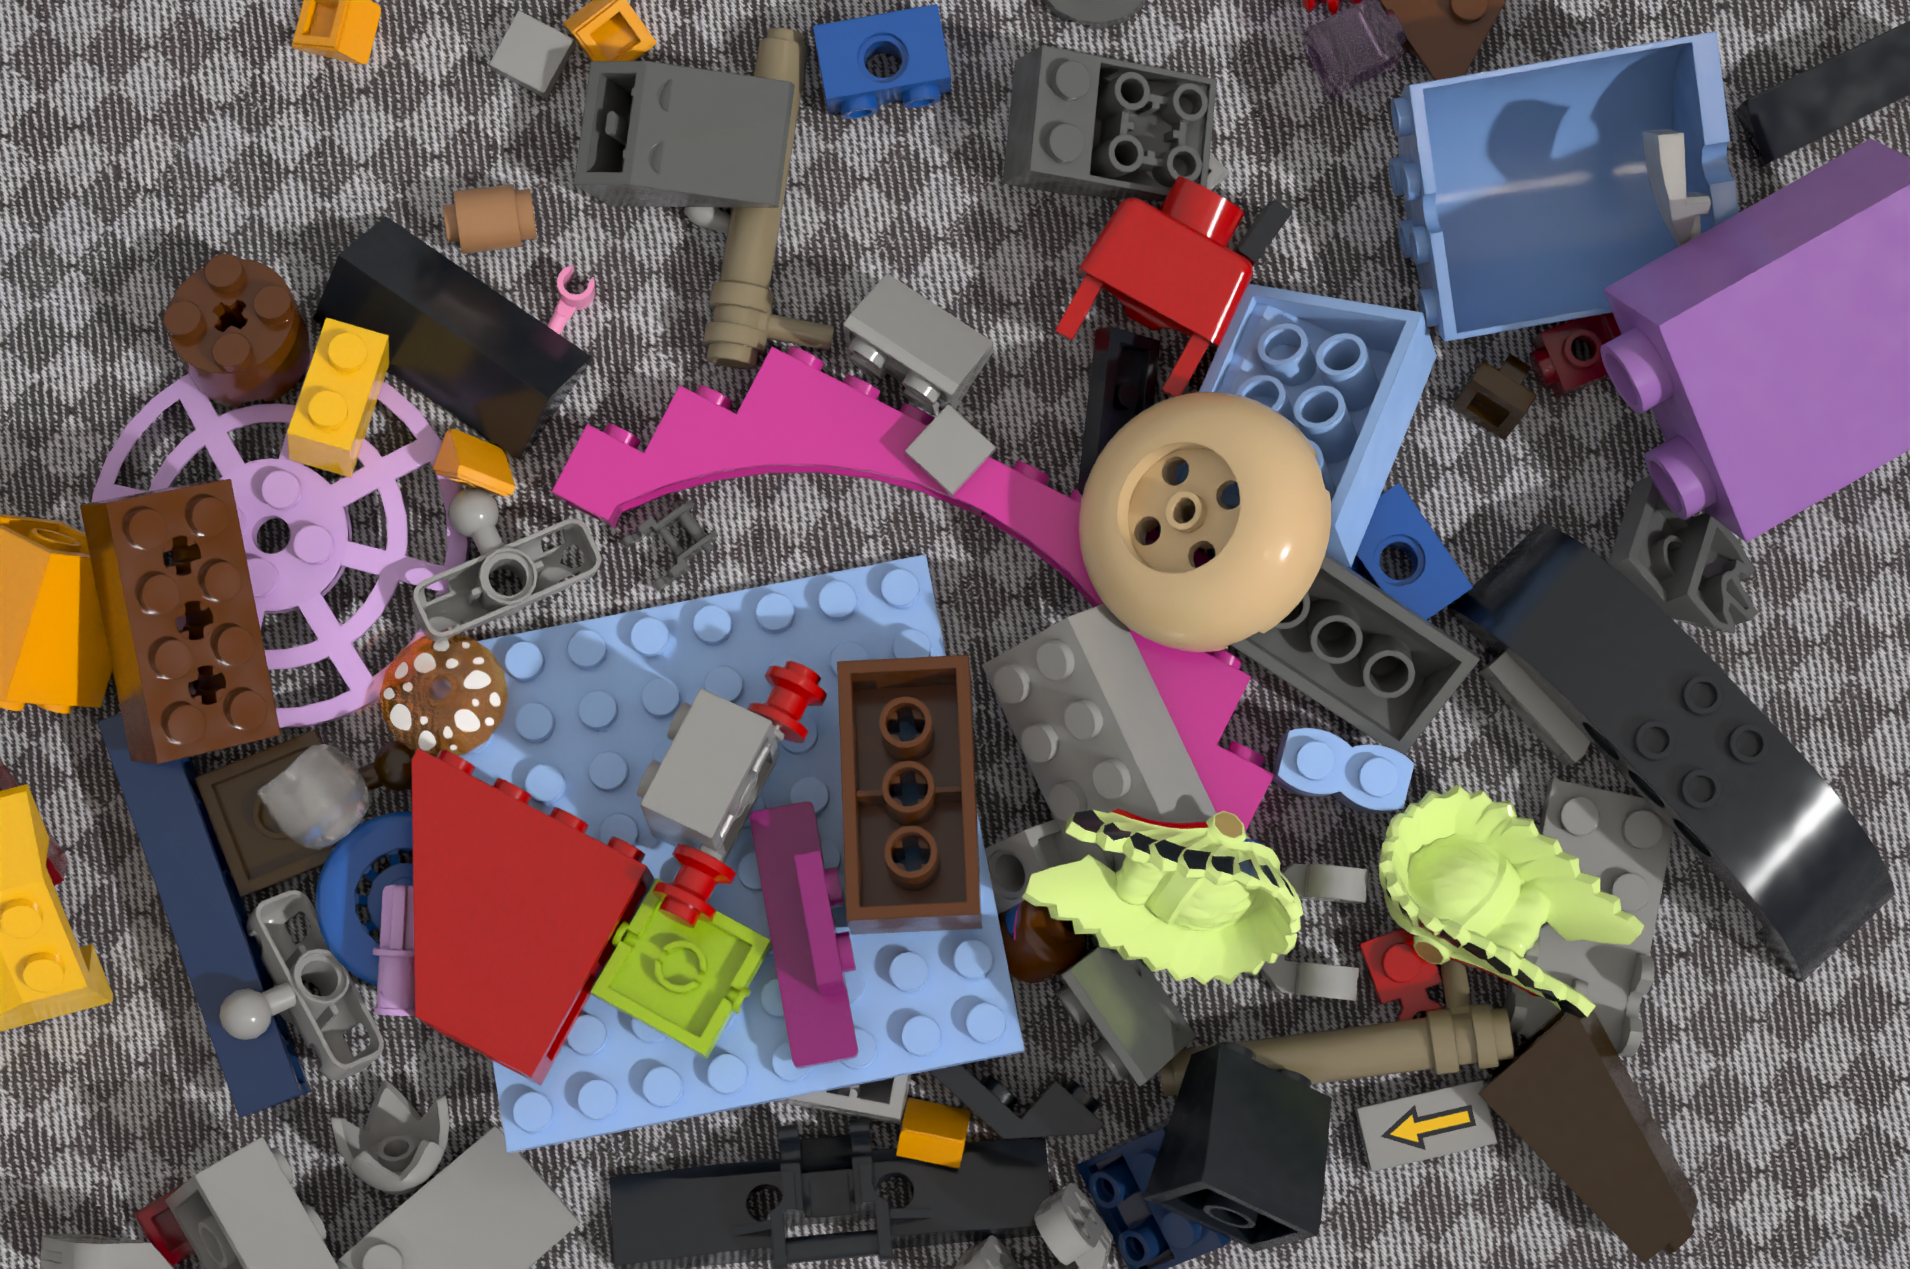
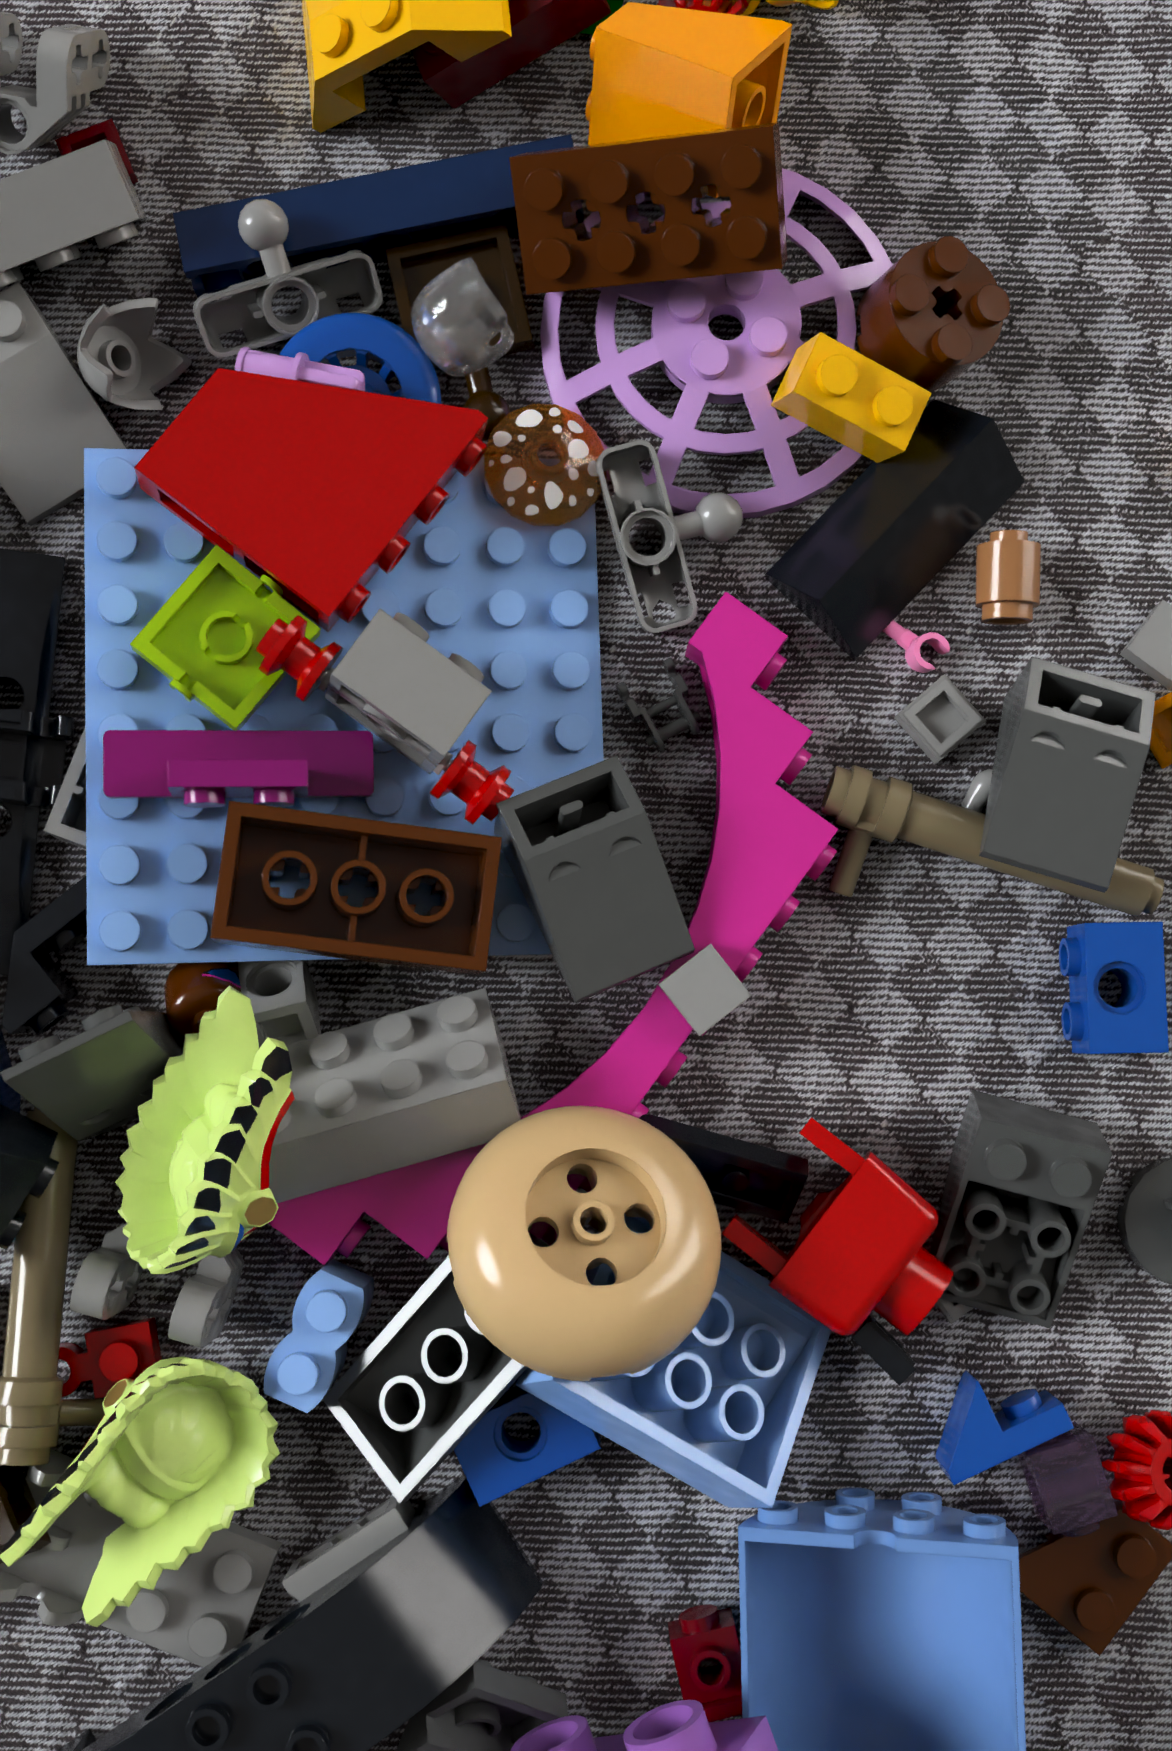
camera: 105 degrees right, 0 degrees up
(474, 463) = (767, 527): light orange slope -> none
(641, 265) = (939, 719): none -> light grey tile
(859, 572) = (593, 877): none -> dark grey slope
(915, 344) = (821, 975): light grey slope -> none
(933, 1132) = (42, 867): light orange slope -> none
(1330, 130) = (980, 1439): none -> blue slope
(1496, 396) = (676, 1564): dark brown tile -> none

